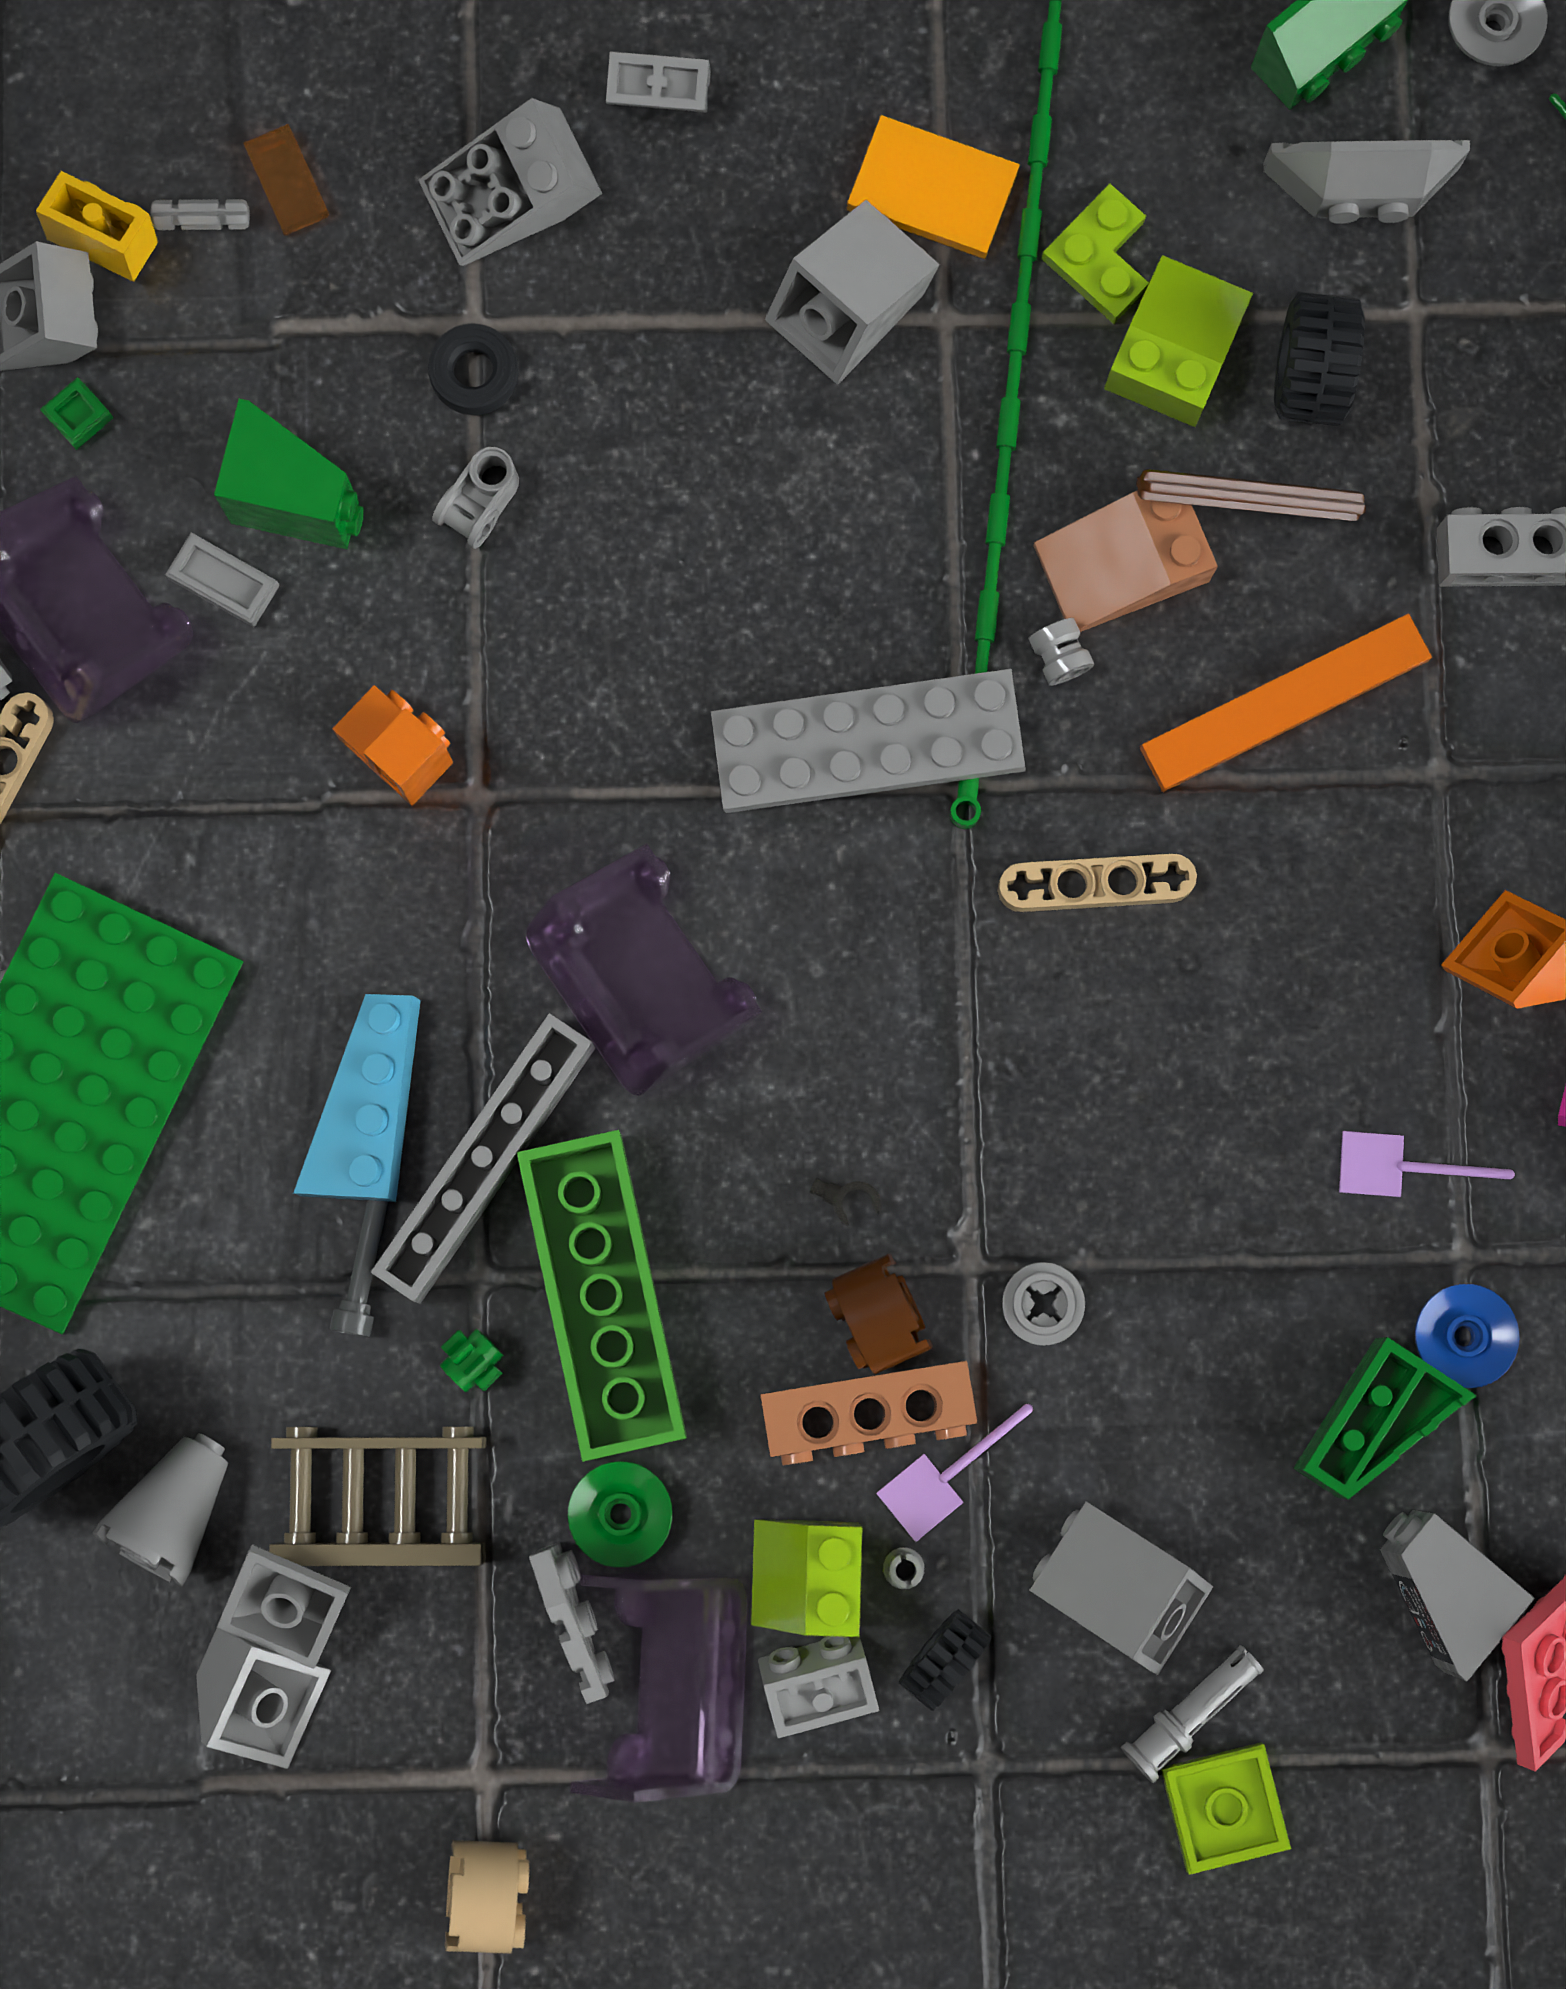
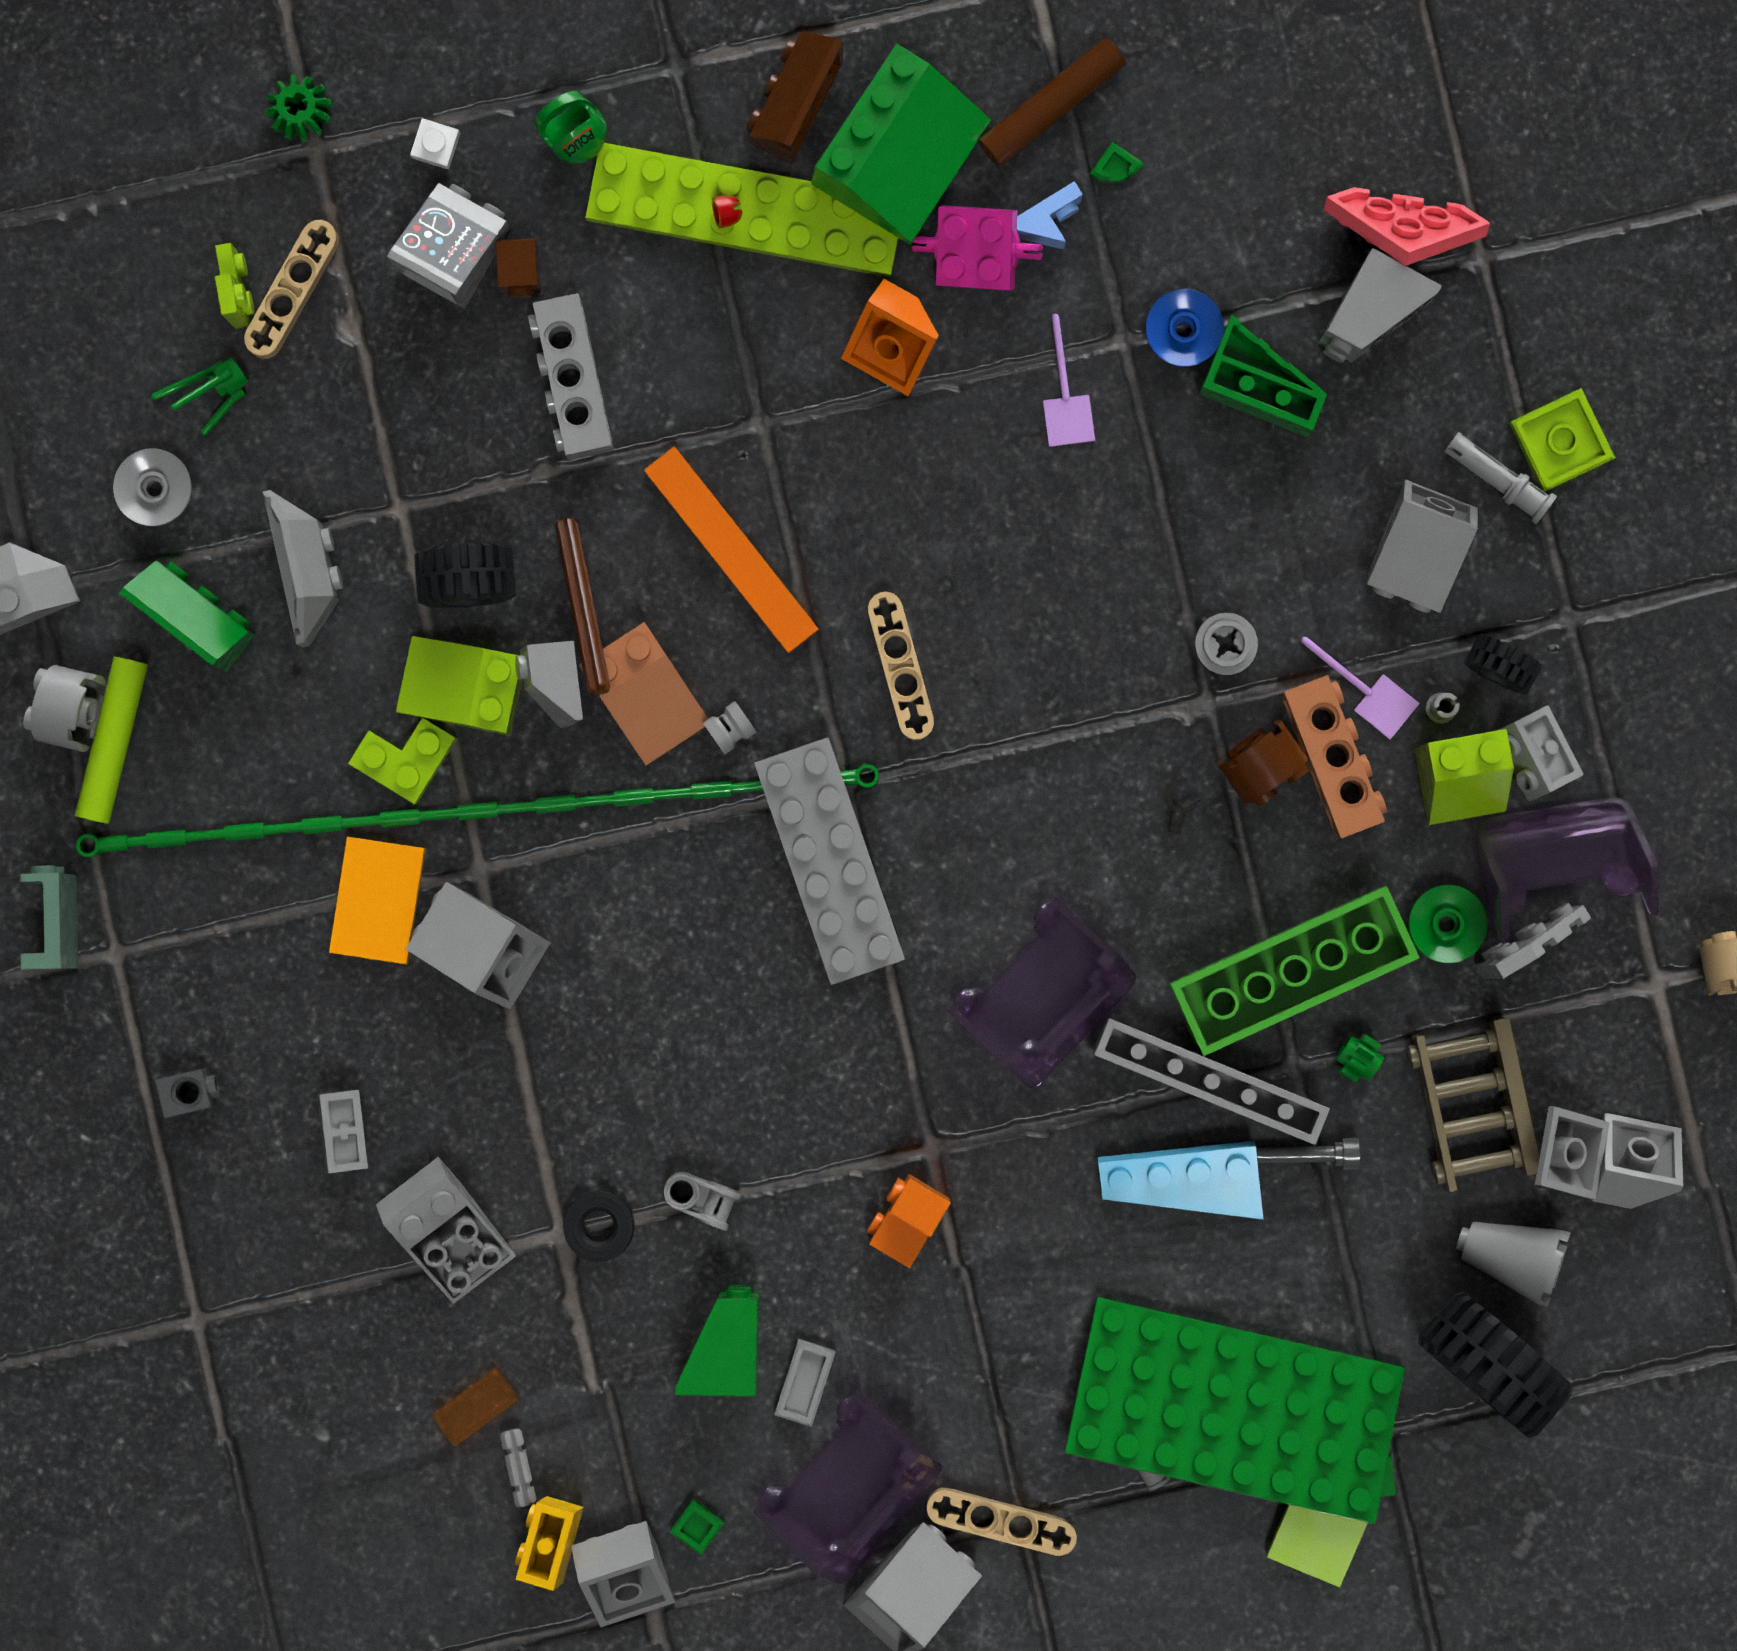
camera: 95 degrees left, 5 degrees up
(1170, 434) = (552, 680): none -> light grey slope

